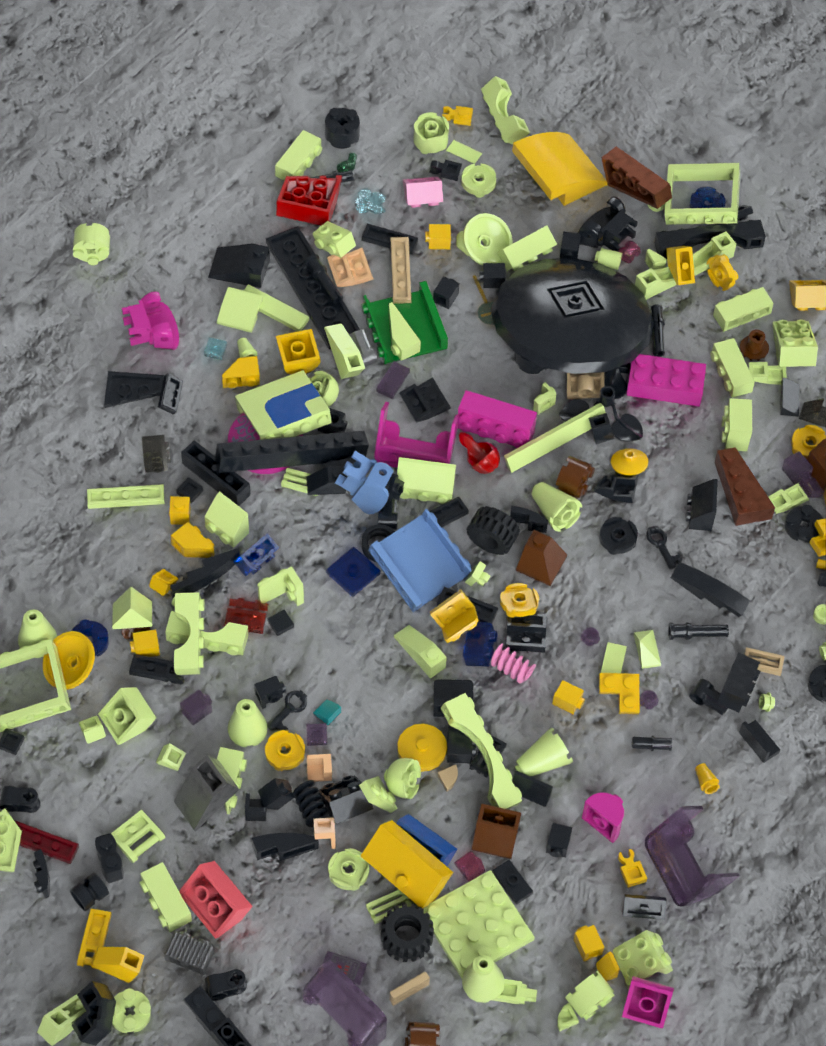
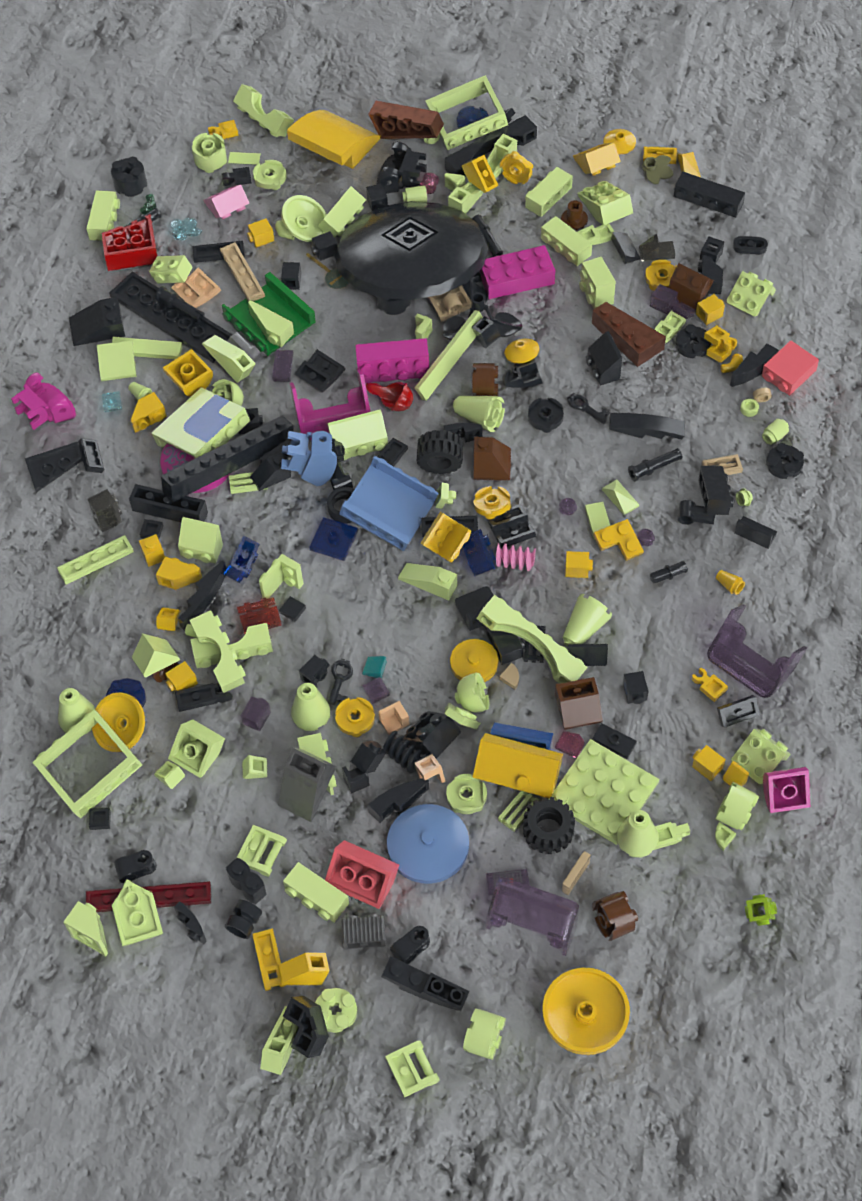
camera: 20 degrees left, 0 degrees up
(290, 899) = (428, 843): none -> medium blue dish
(604, 814) = (665, 648): dark pink brick -> none

